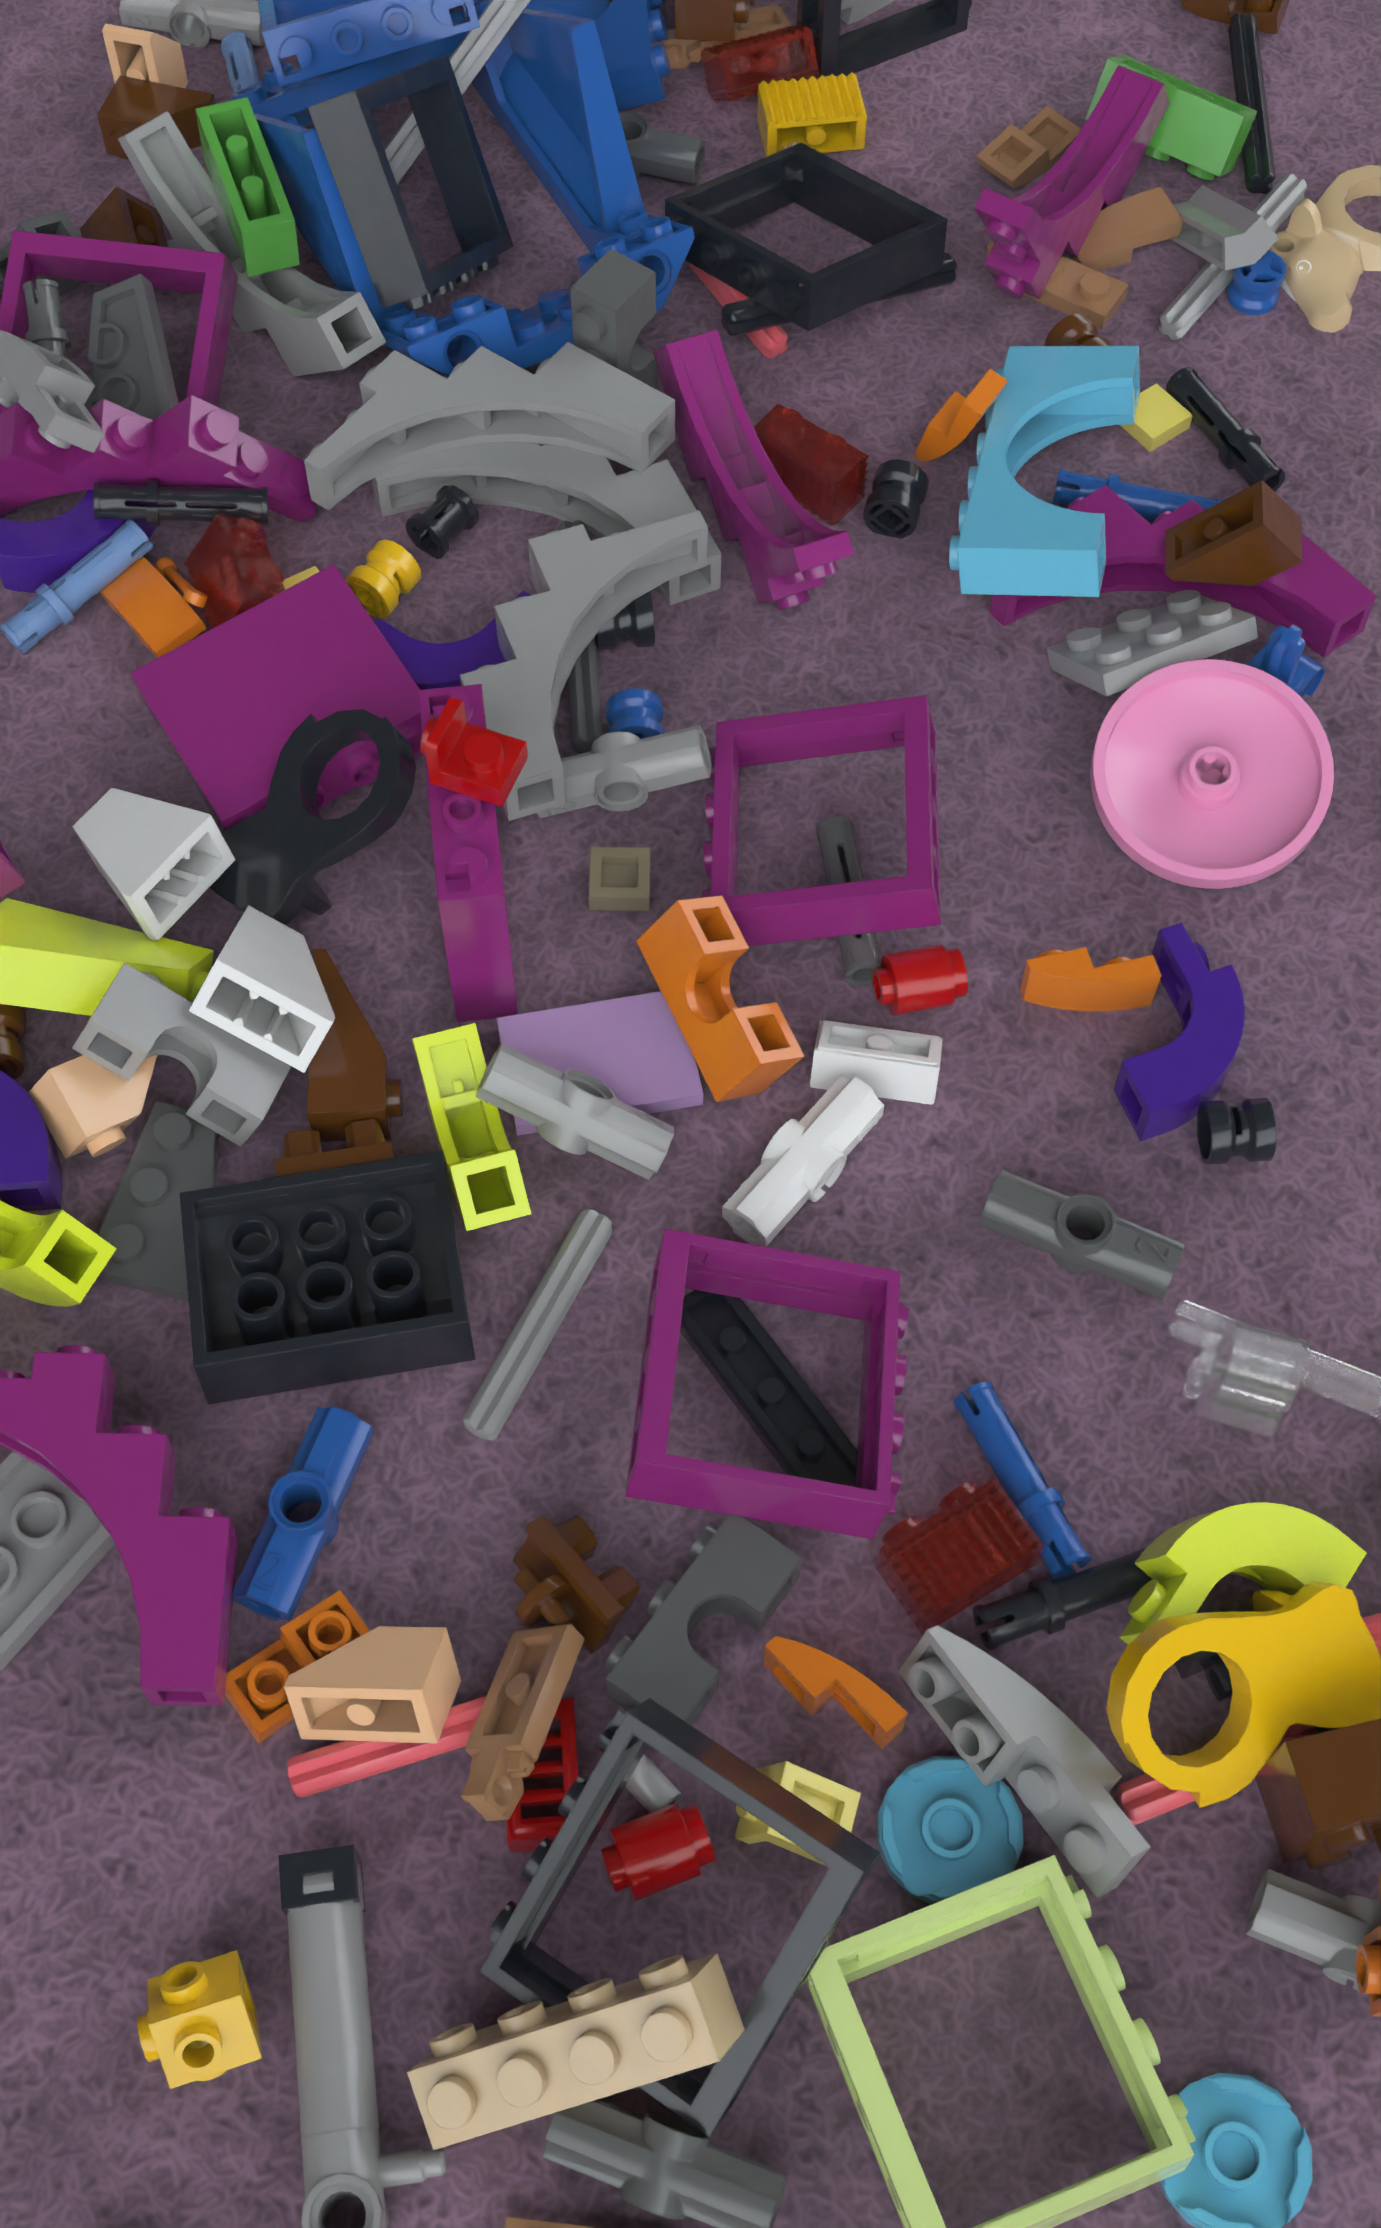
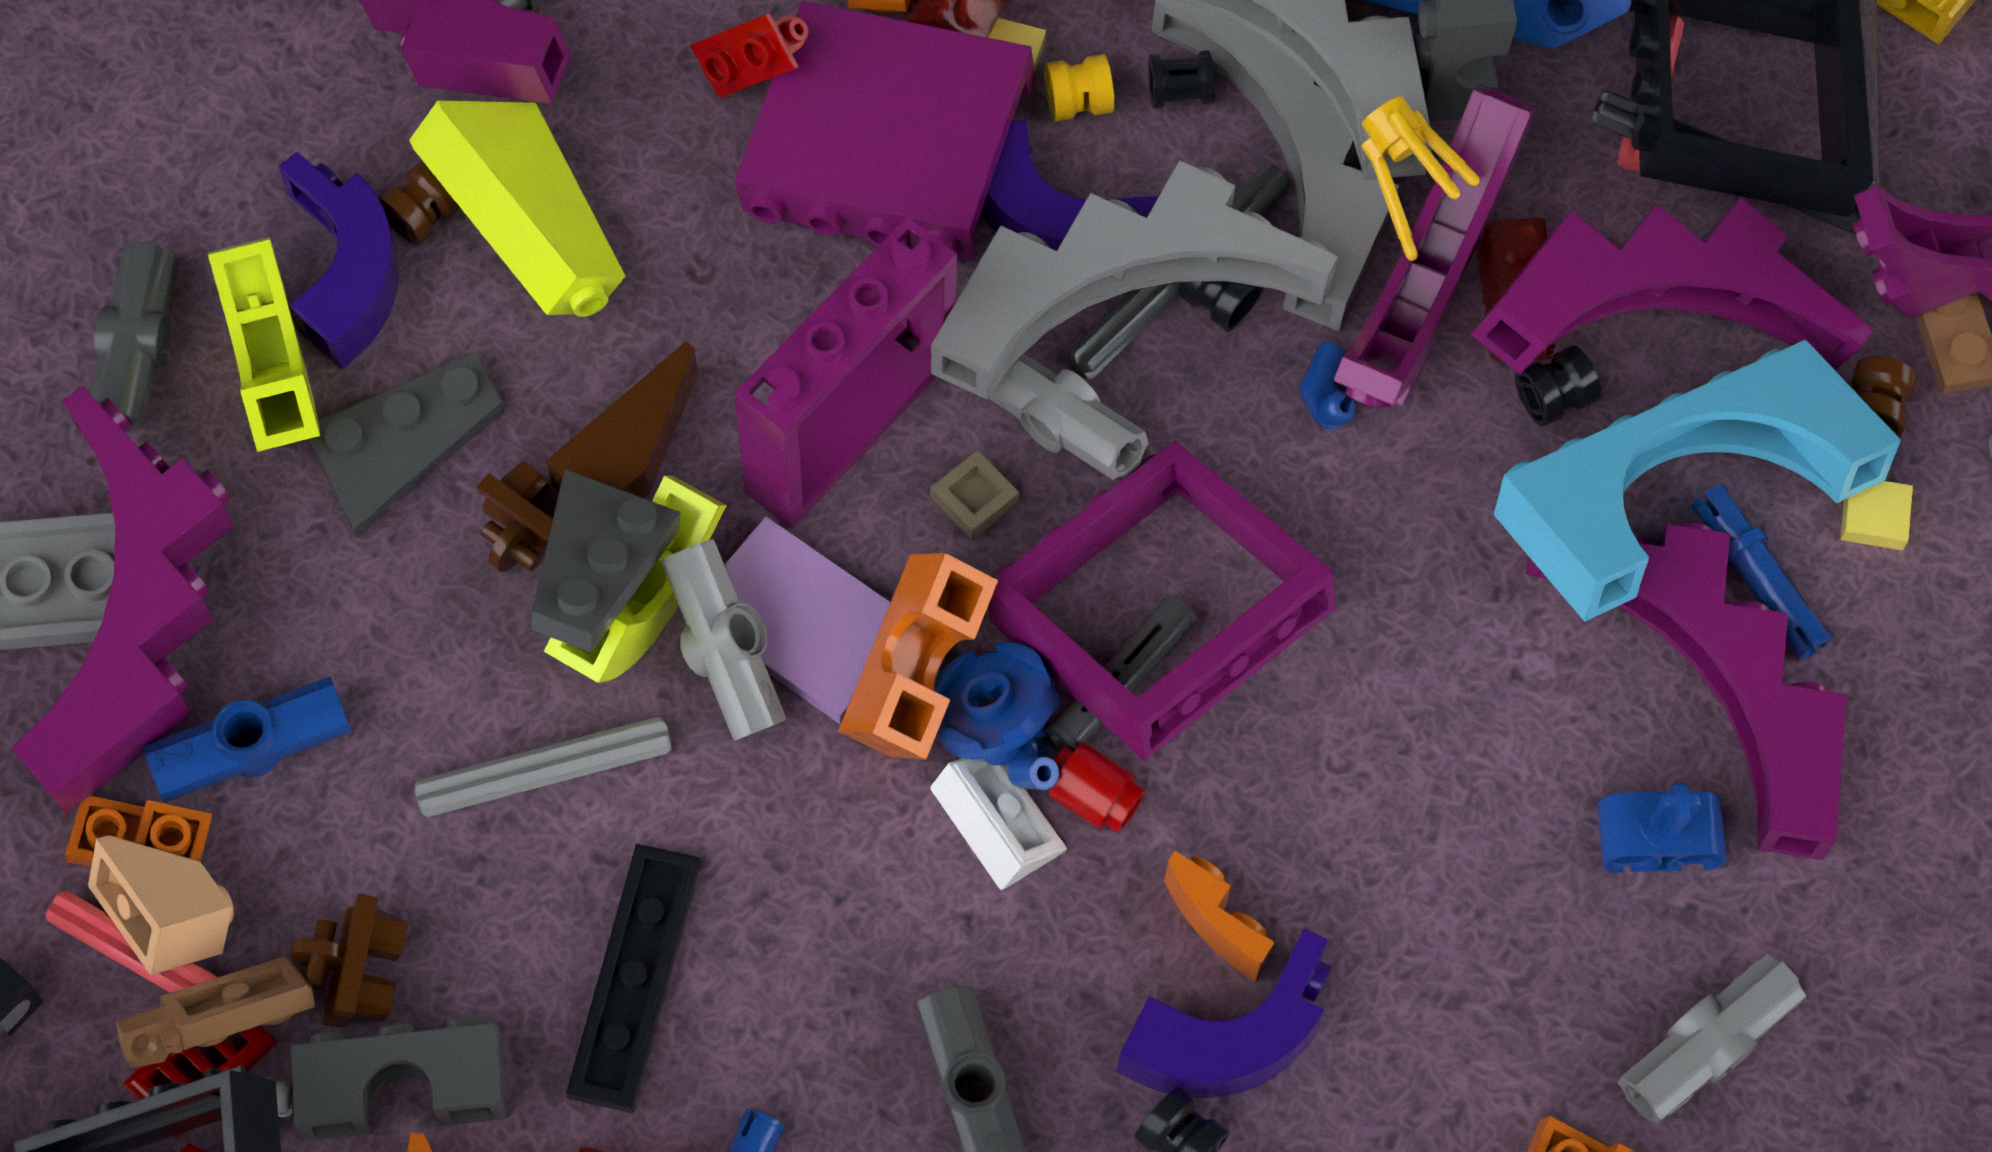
camera: 45 degrees right, 5 degrees up
(90, 1104) = (438, 311): light nougat slope -> none
(132, 734) = (750, 52): none -> red hinge
(147, 1019) = (504, 283): light grey arch -> none
(153, 855) = (652, 164): white slope -> none
(267, 991) = (614, 339): white slope -> none
(290, 840) = (748, 244): black animal -> none
(324, 1278) = (423, 590): black slope -> none
(436, 1128) = (596, 558): none -> dark grey wing
(471, 757) = (867, 304): red bracket -> none
(635, 712) = (1128, 382): blue wheel -> none
(652, 403) = (1400, 133): none -> yellow plant
(770, 633) = (1320, 391): none -> blue arm
(793, 1282) = (668, 822): magenta window -> none
(802, 1160) = (848, 835): white piece -> none
(827, 975) = (1011, 721): none -> blue plate
(861, 1007) = (1031, 766): none -> blue arm
(883, 365) = (1665, 266): none -> magenta arch
(959, 417) = (1682, 363): orange slope -> none
(1150, 639) = (1605, 700): light grey plate -> none
(1211, 773) = (1511, 850): bright pink dish -> none
(1236, 540) = (1757, 683): reddish brown slope -> none
(1237, 445) = (1912, 601): black pin -> none

